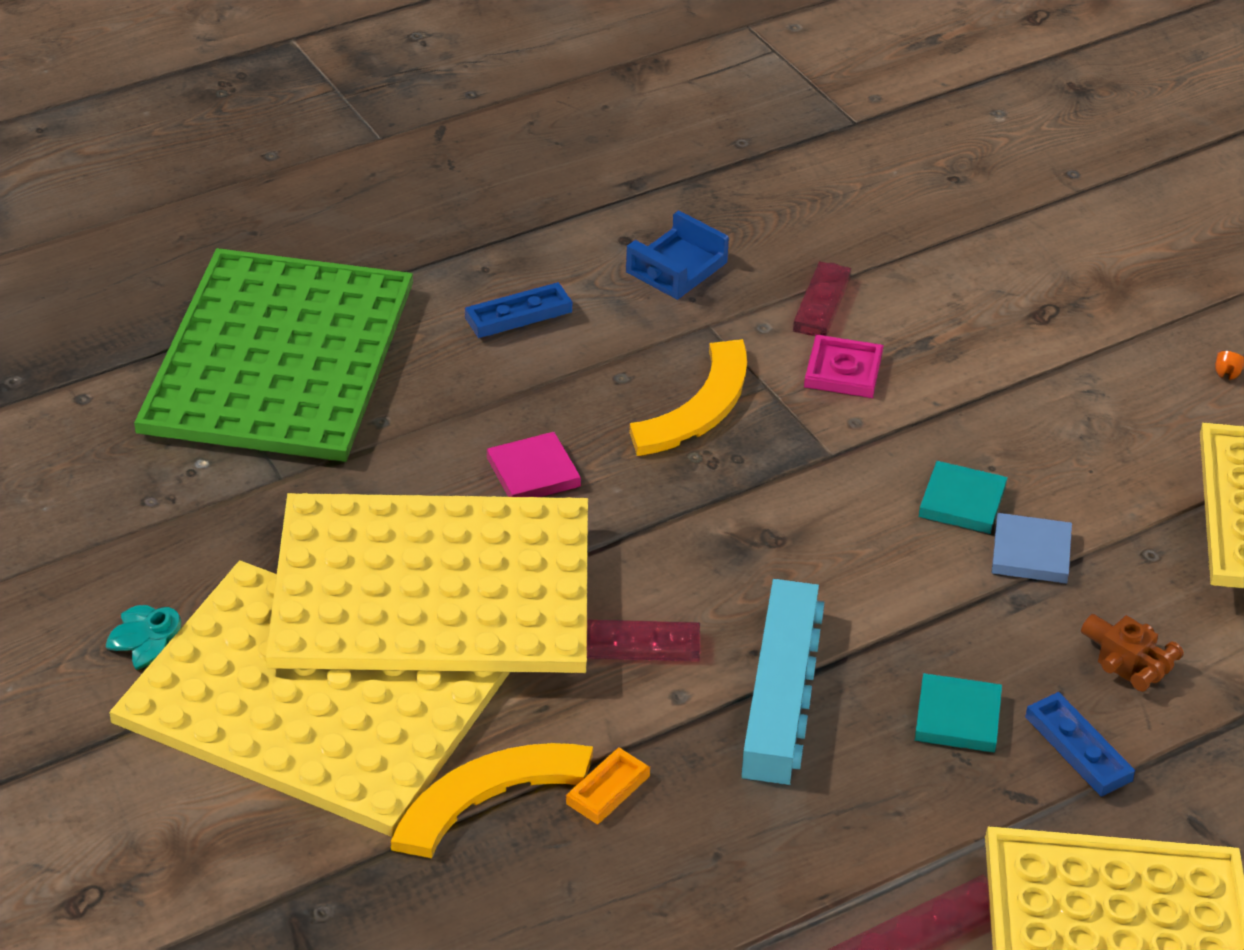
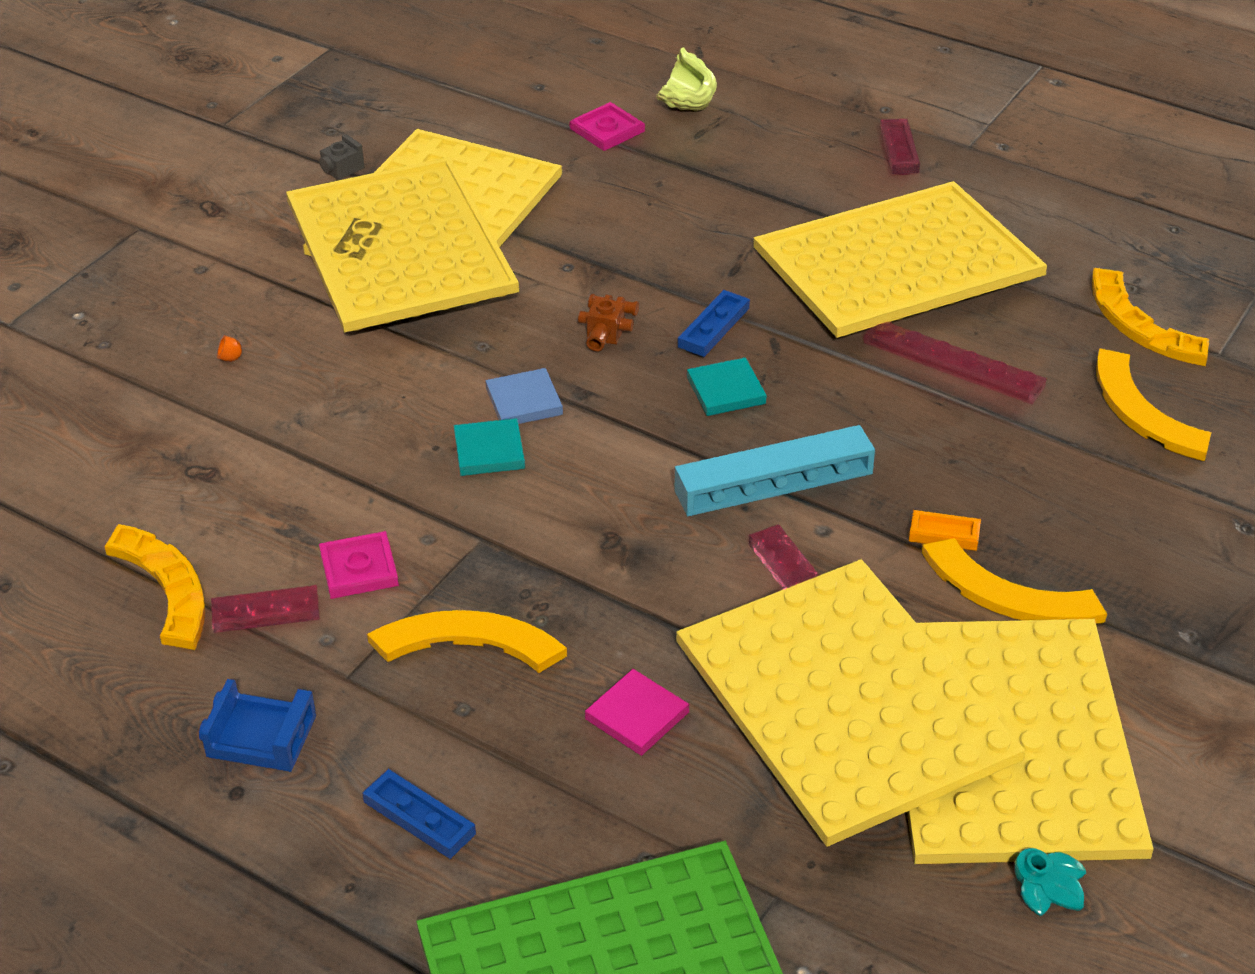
camera: 115 degrees left, 0 degrees up
(899, 262) = (174, 574): none -> yellow tile

